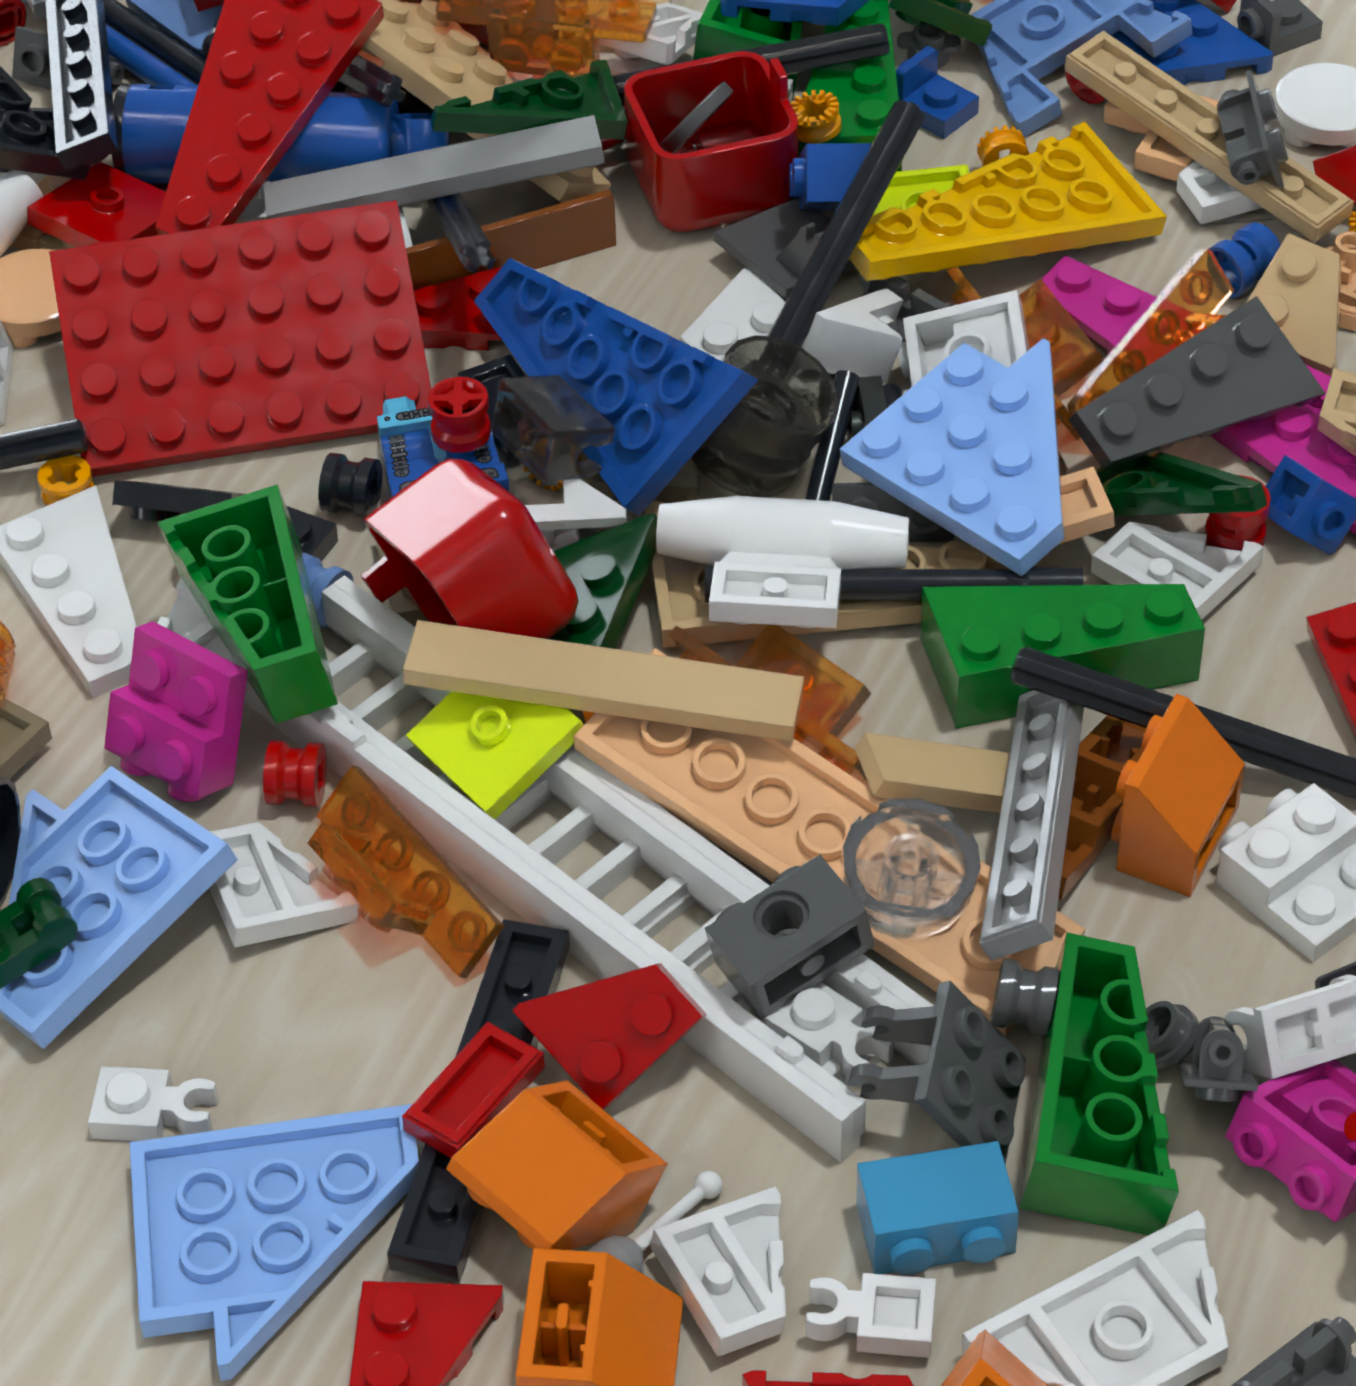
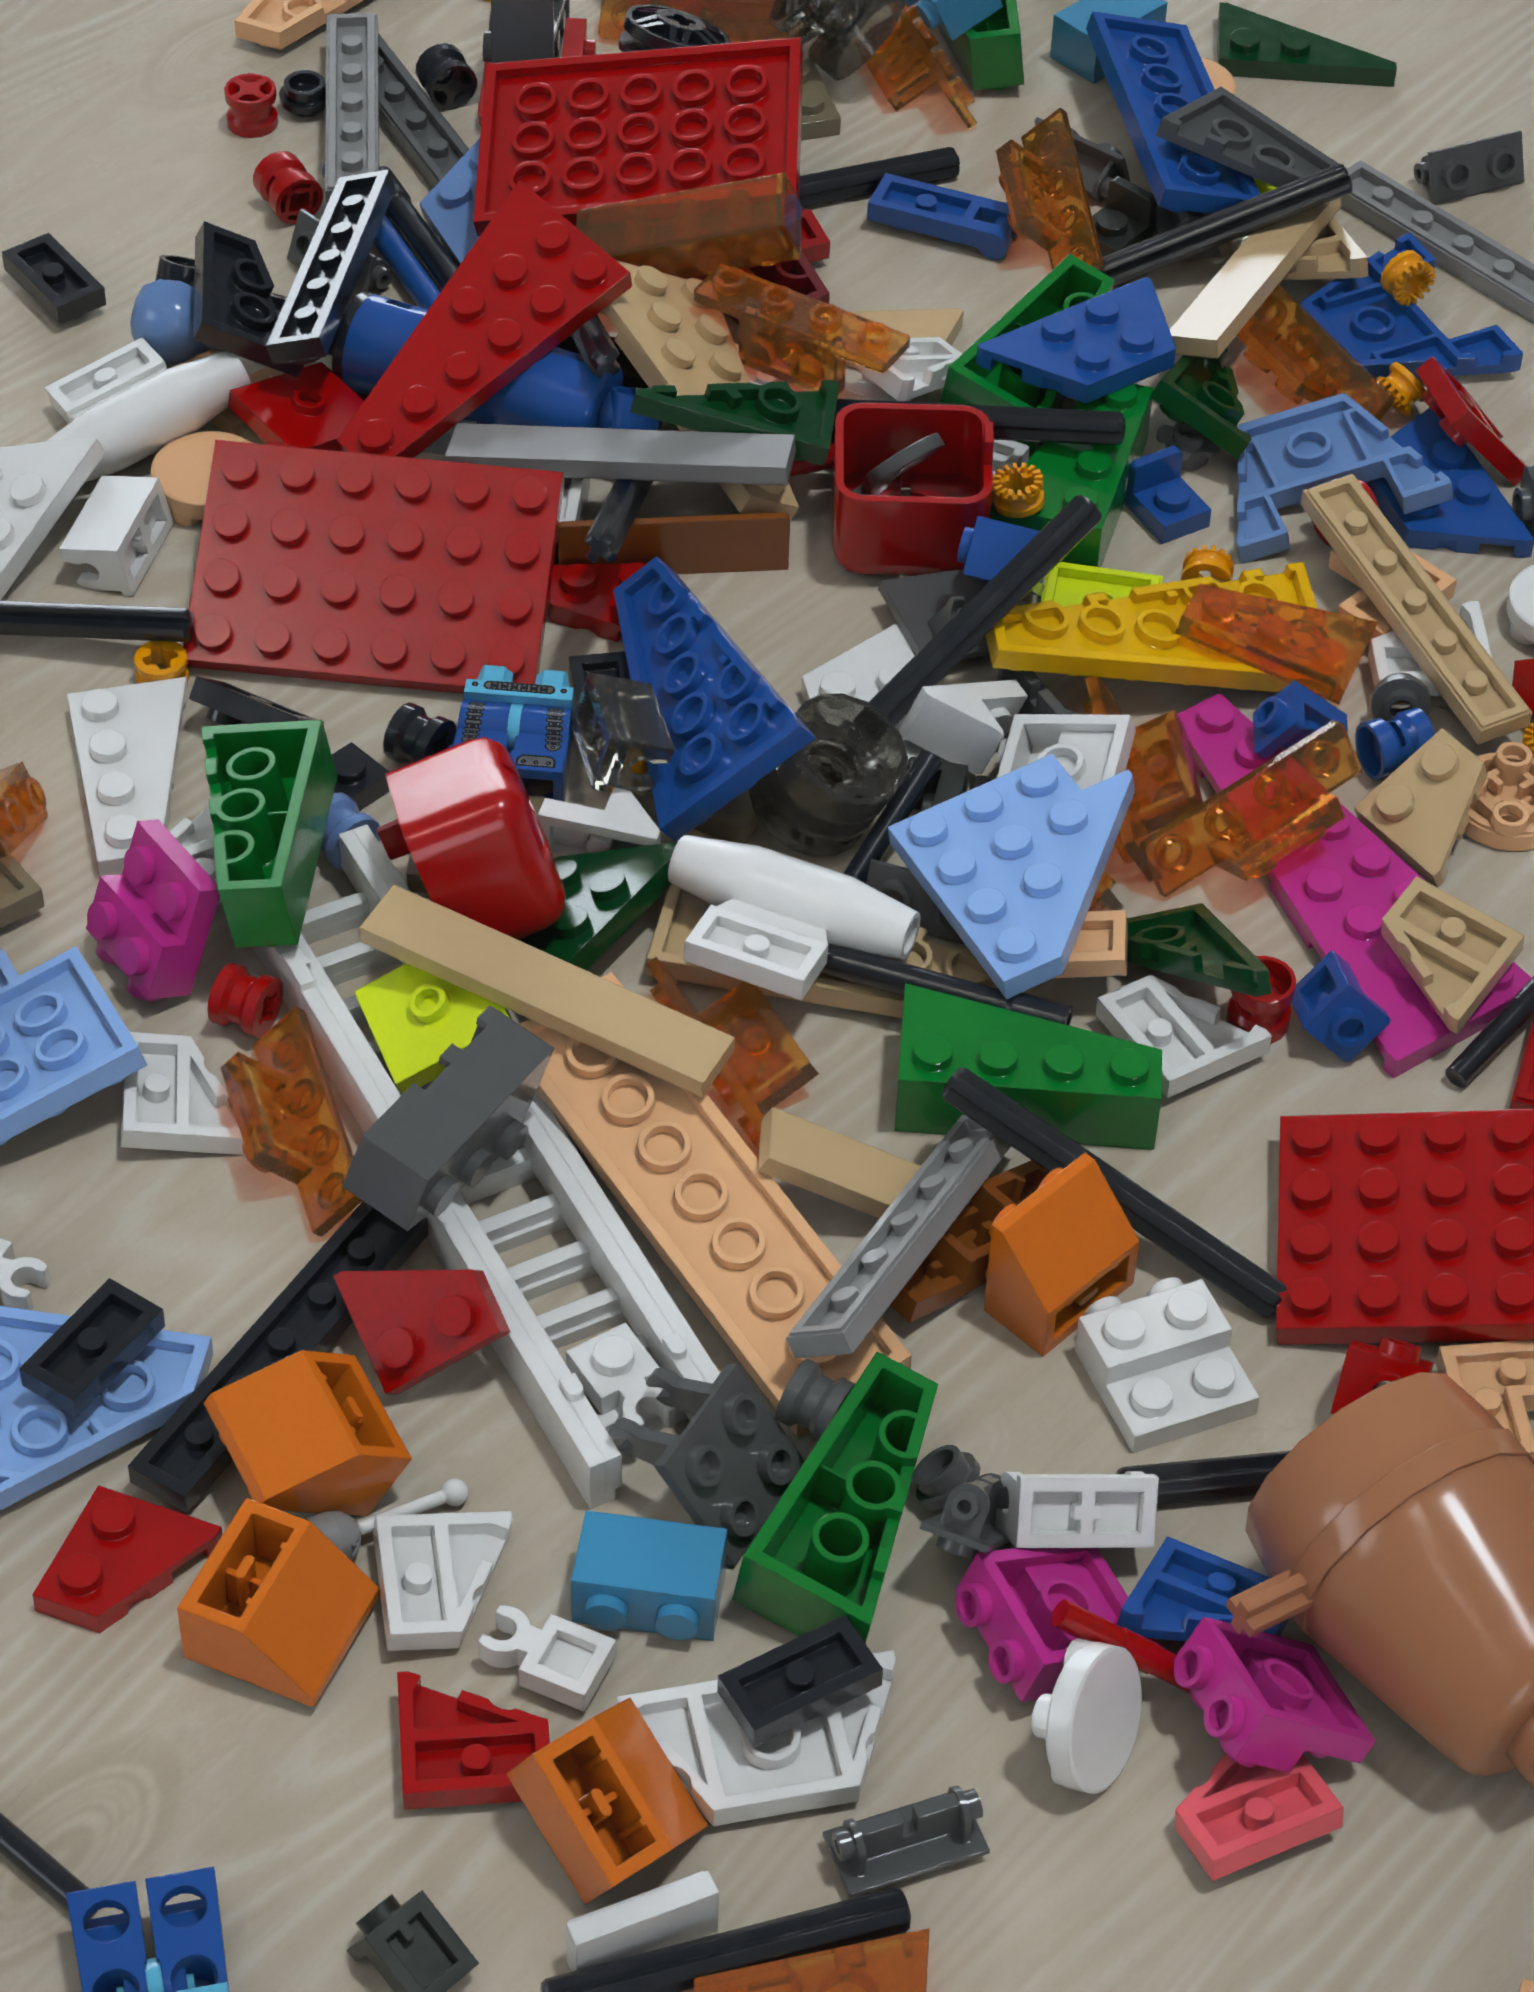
camera: 15 degrees right, 0 degrees up
(306, 1147) = (92, 1347): none -> black plate
(459, 414) = (537, 697): red wheel -> none
(473, 1089) = (269, 1334): red tile -> none
(574, 830) = (455, 1127): none -> dark grey wedge
(773, 968) = (591, 1306): dark grey brick -> none
(910, 868) = (746, 1247): clear cylinder -> none
(1108, 192) = (1279, 637): none -> clear orange wing
(1134, 1264) = (799, 1680): none -> black plate
(1149, 262) = (1290, 718): none -> blue bracket
(1212, 381) = (1290, 856): dark grey wing -> none
(1221, 212) = (1396, 688): none -> dark grey plate
(1250, 142) = (1451, 617): dark grey hinge -> none

